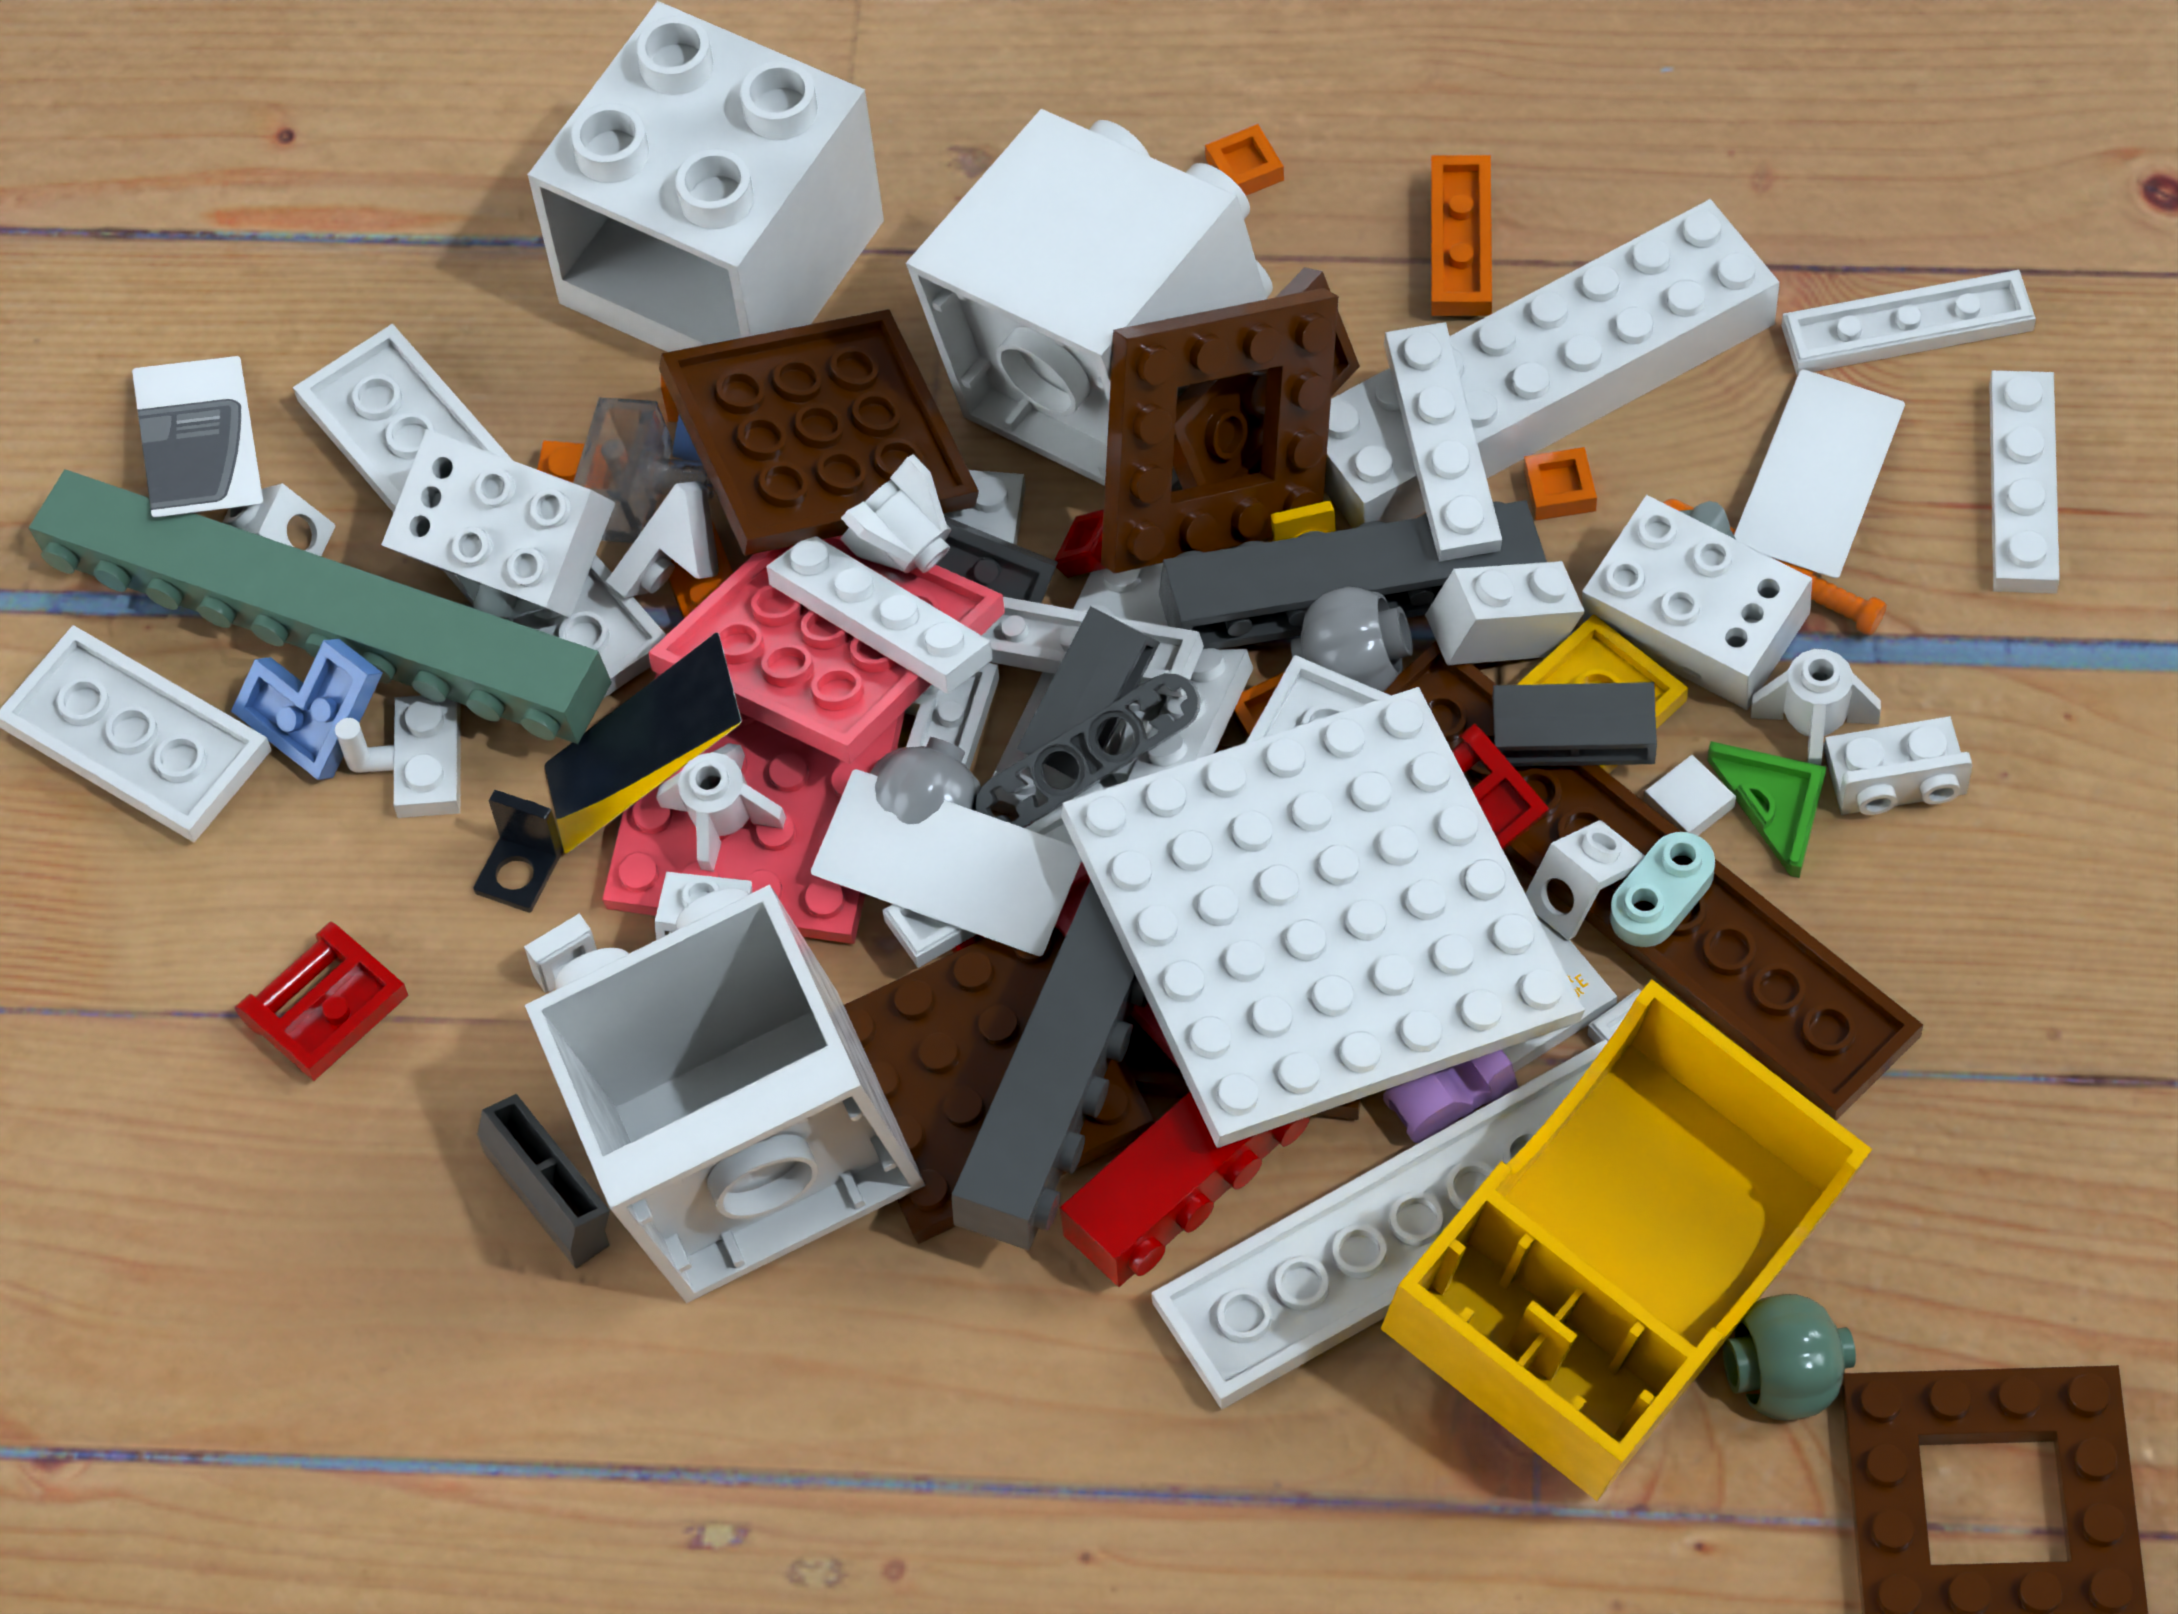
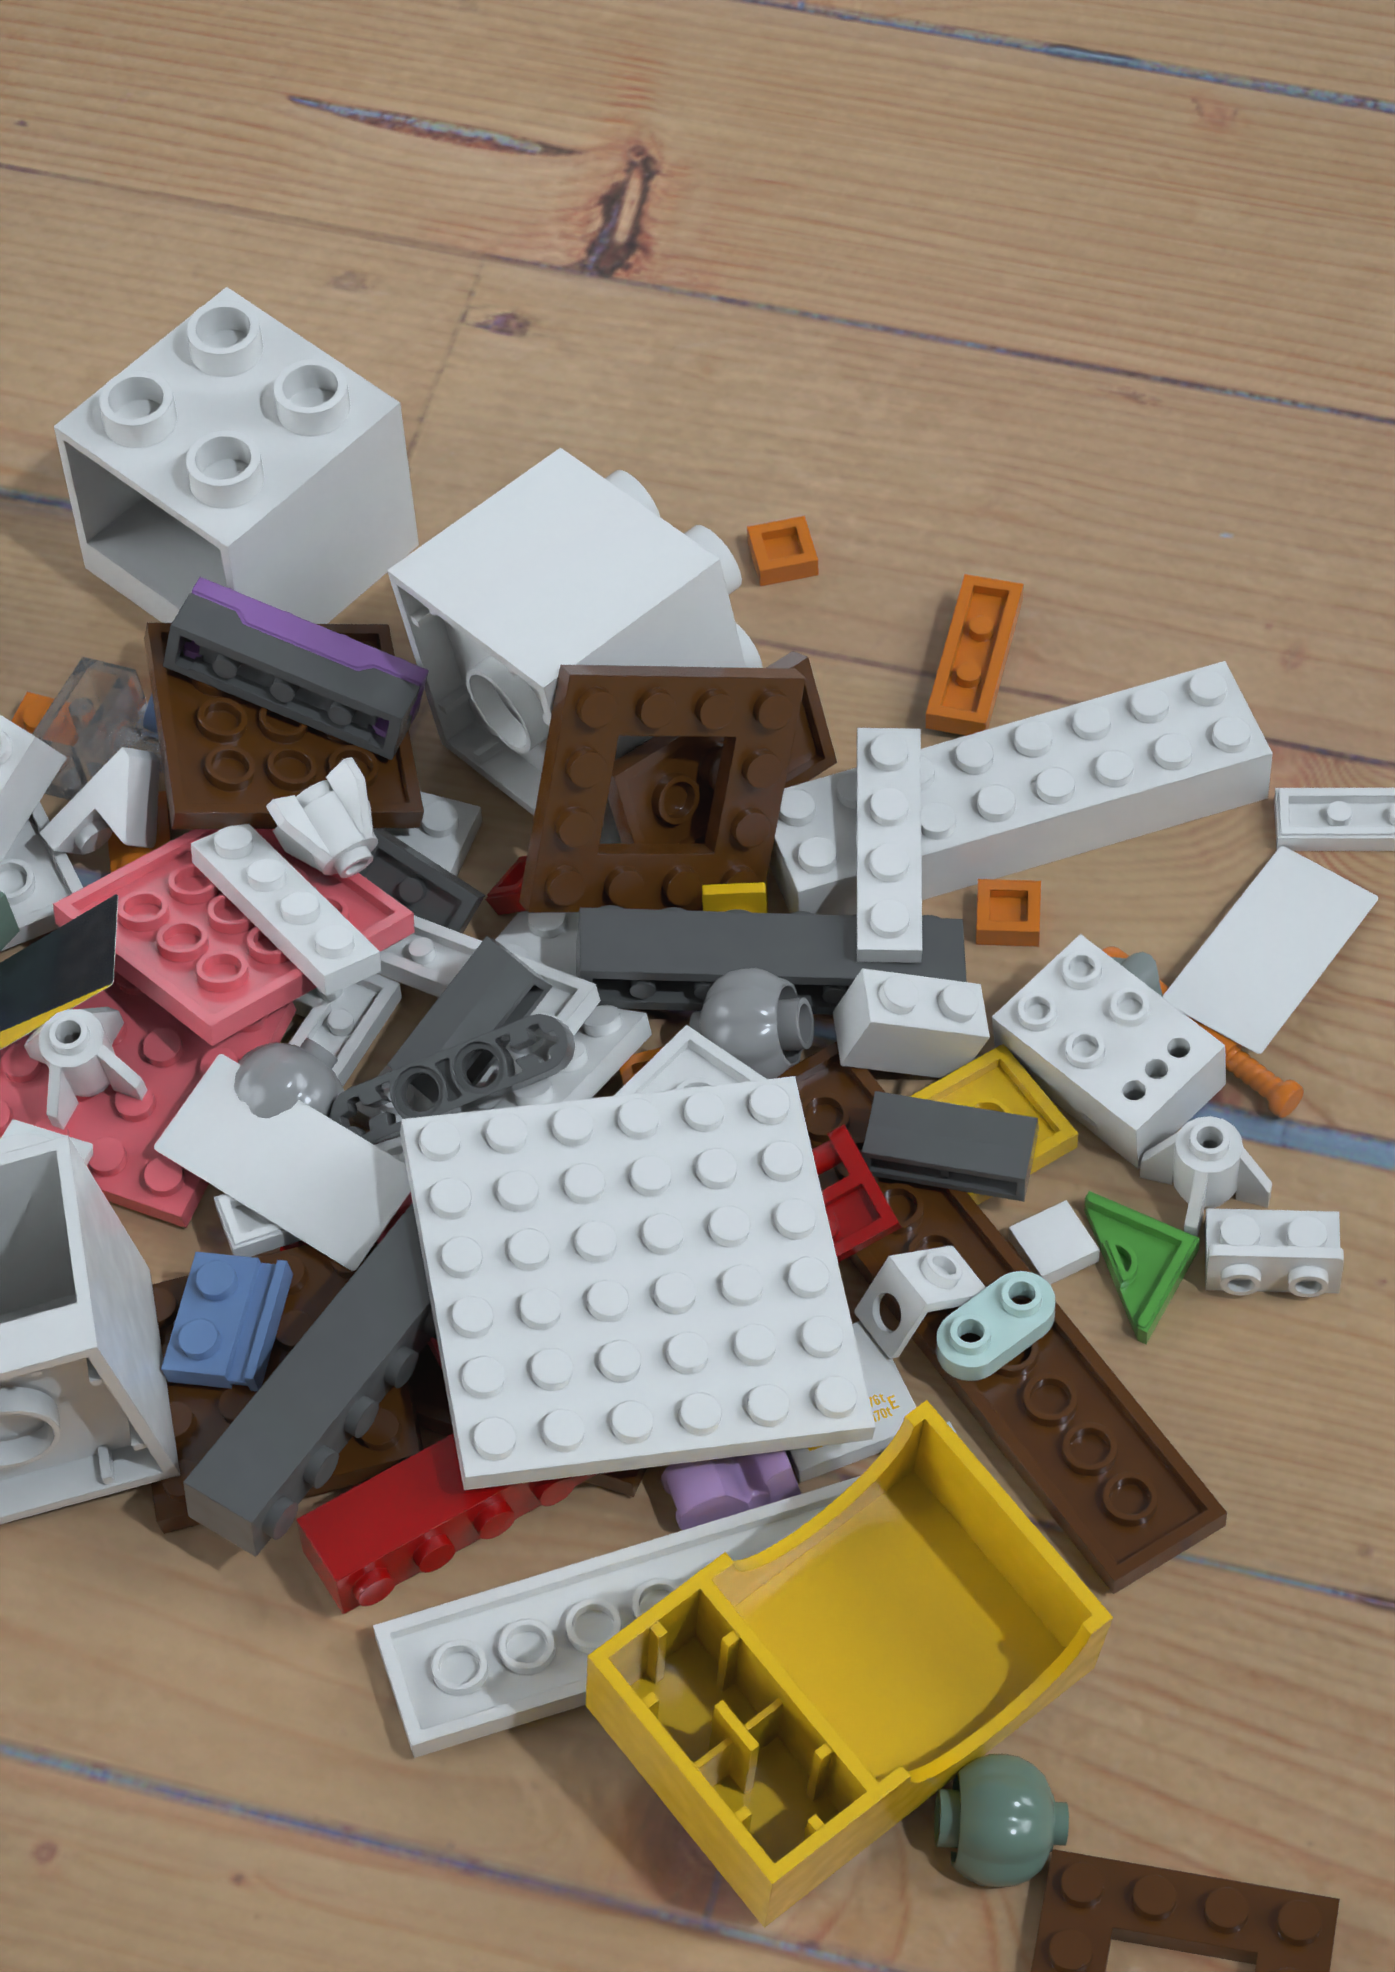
camera: 10 degrees right, 5 degrees down
(821, 372) = (295, 668): none -> dark grey piece
(931, 1028) = (227, 1321): none -> medium blue plate

